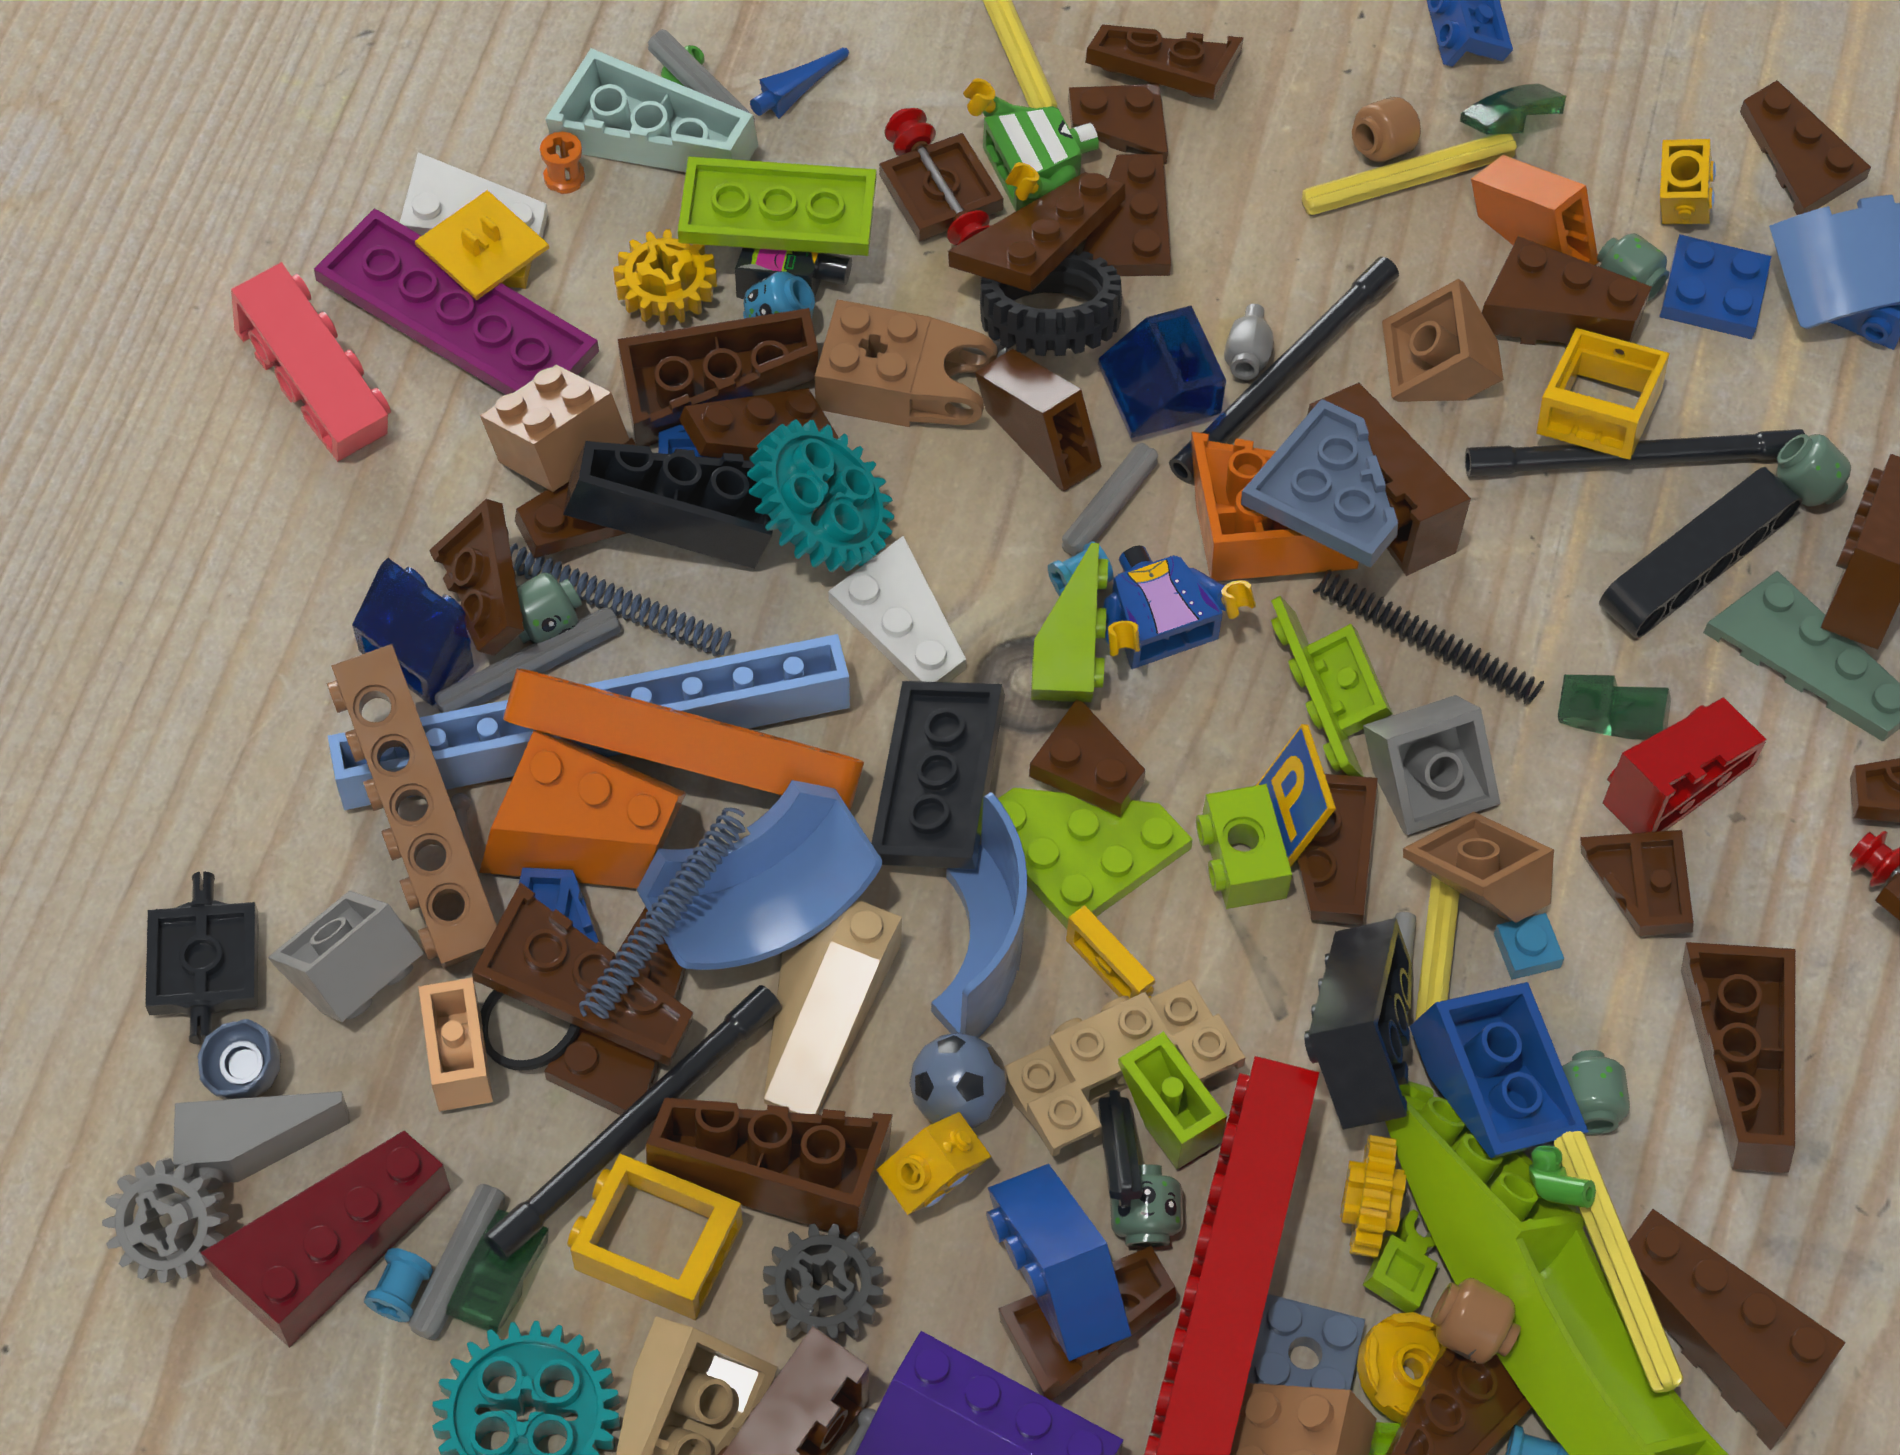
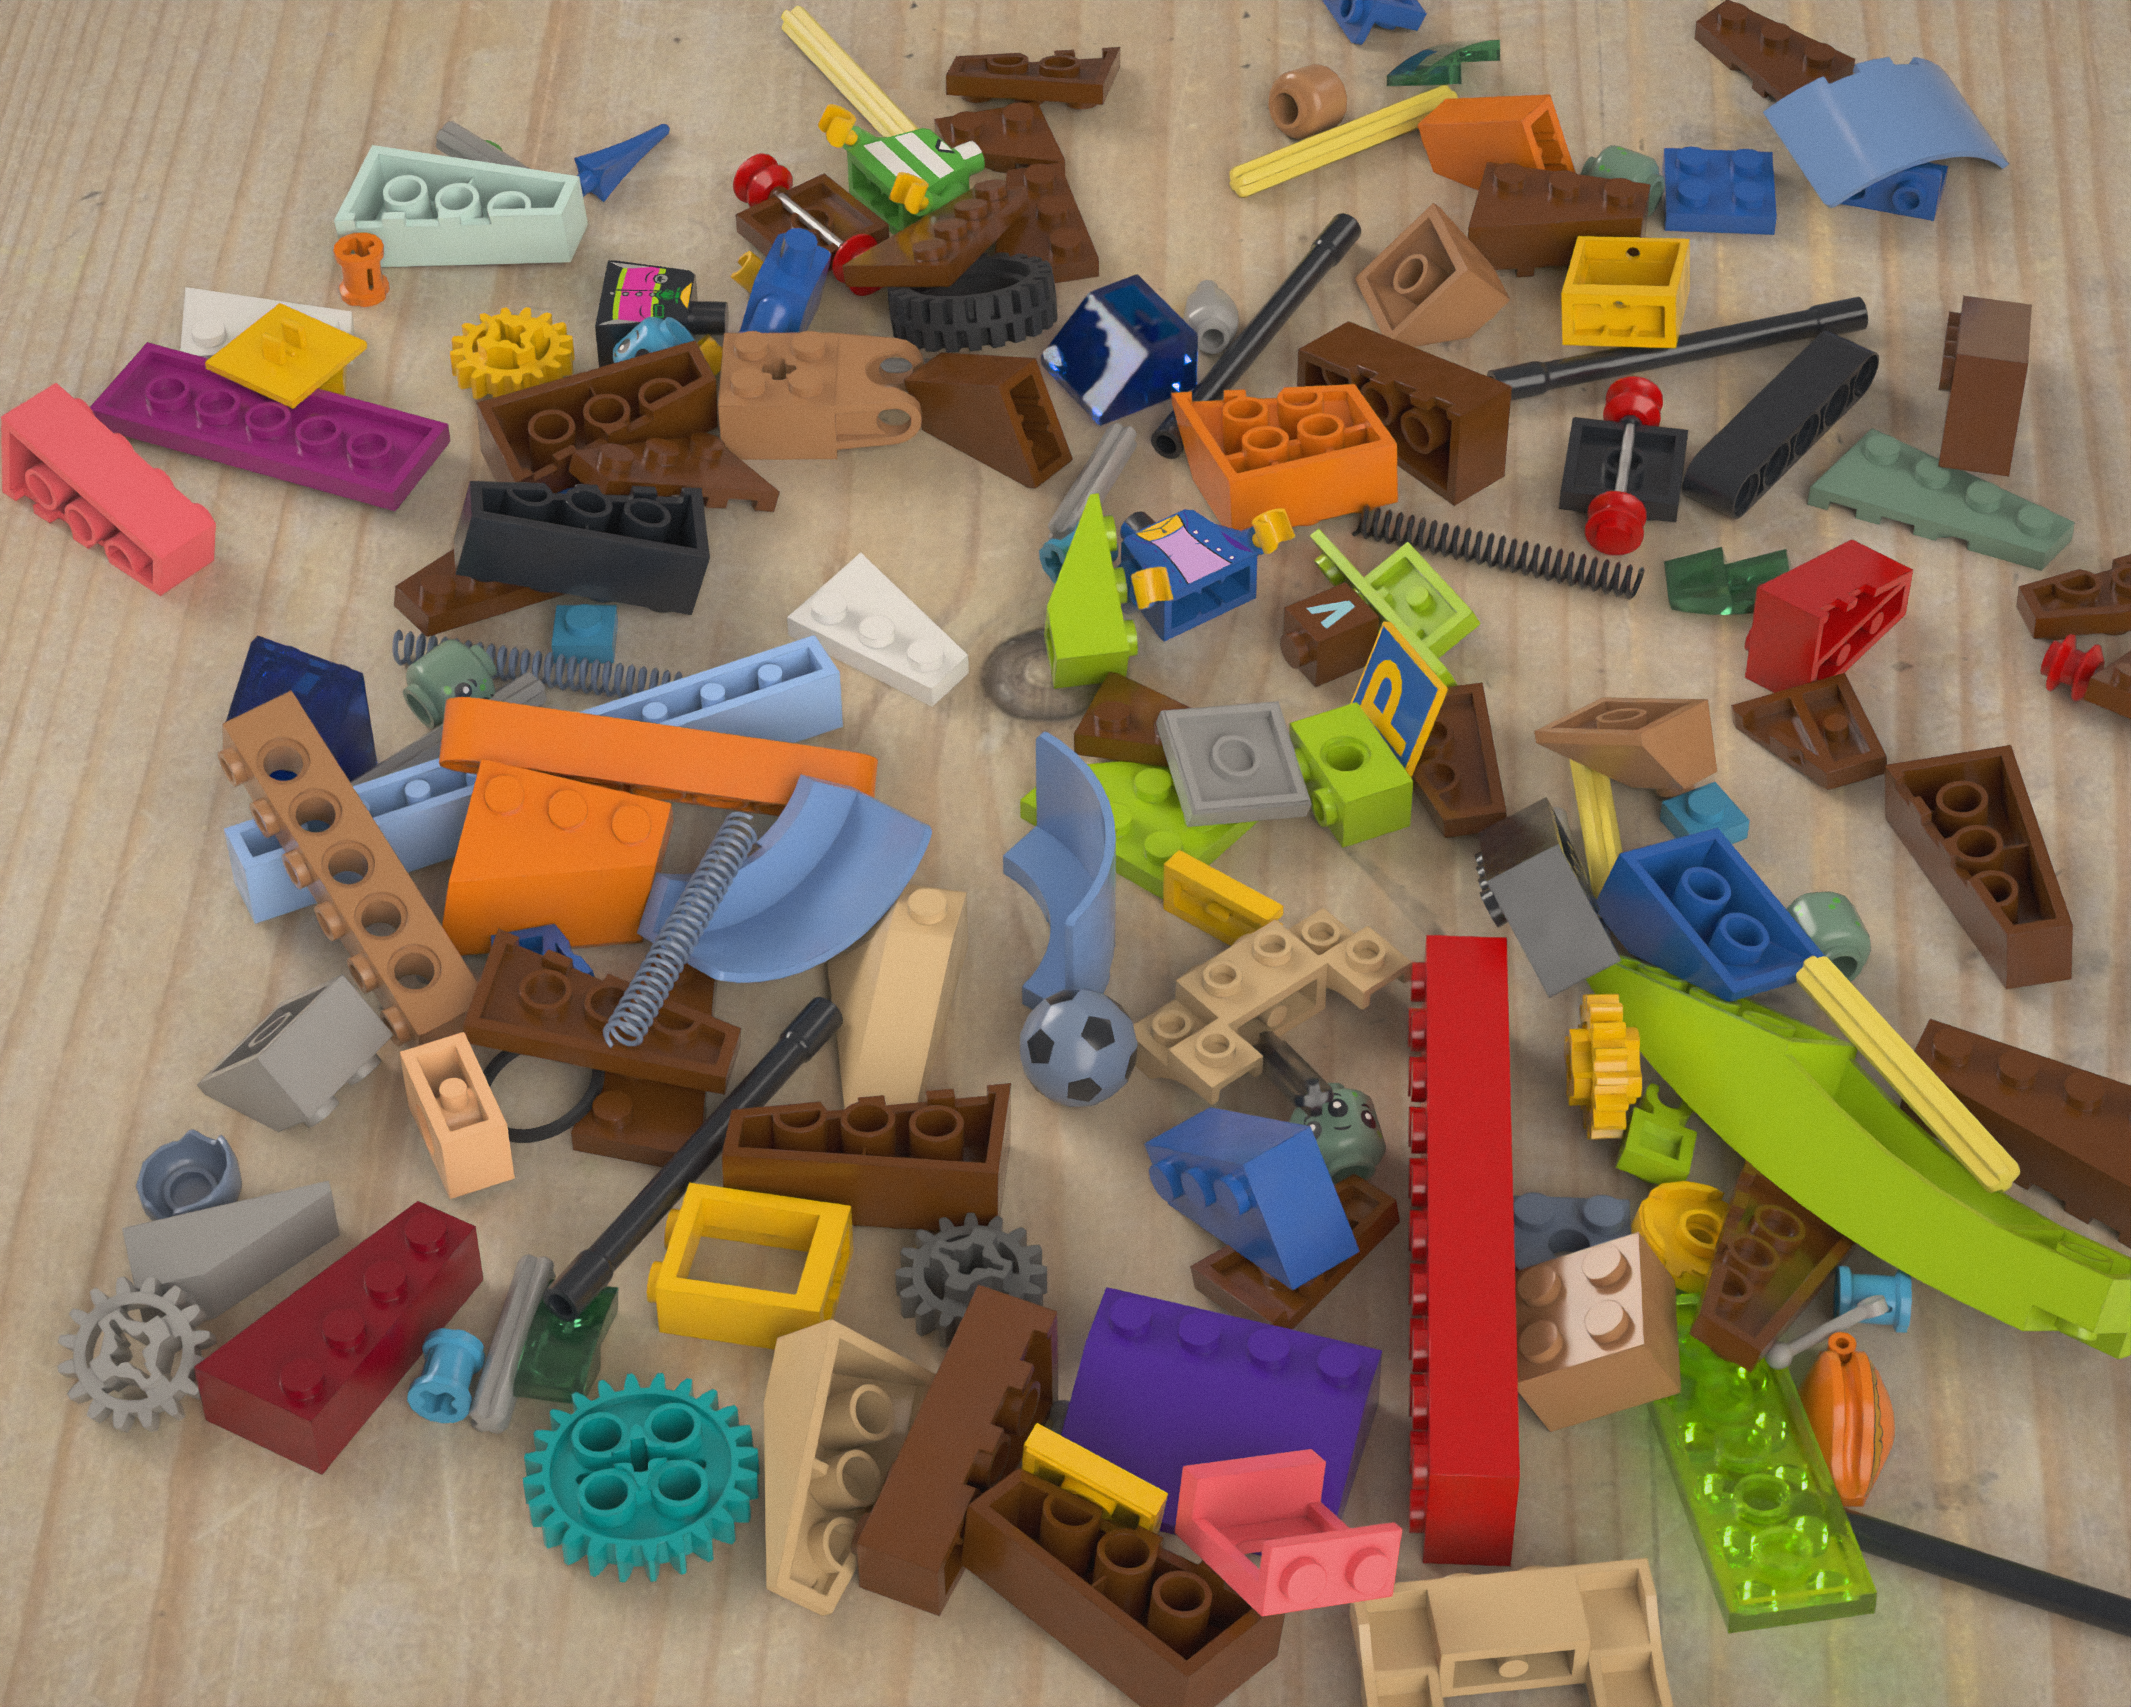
camera: 10 degrees left, 15 degrees down
(202, 958) = (115, 1092): black plate -> none
(483, 576) = (372, 638): reddish brown wing -> none
(547, 424) = (411, 502): medium nougat brick -> none
(664, 571) = (585, 632): none -> dark azure plate
(777, 206) = (631, 256): lime plate -> none
(792, 484) = (756, 516): teal gear -> none
(894, 267) = (781, 289): none -> blue torso
(933, 1163) = (1072, 1126): yellow head -> none
(938, 774) = (969, 762): black plate -> none
(1150, 824) = (1233, 763): none -> light grey tile
(1172, 1100) = (1340, 1020): lime slope -> none
(1264, 699) = (1329, 634): none -> reddish brown brick
(1327, 486) = (1345, 404): sand blue plate -> none
(1433, 763) = (1541, 659): light grey slope -> none
(1475, 1321) = (1761, 1153): medium nougat head -> none
(1553, 1182) = (1815, 1011): bright green arm -> none
(1555, 572) = (1624, 467): none -> plate
(1686, 181) = (1658, 93): yellow head -> none
(1814, 469) = (1885, 324): sand green head -> none

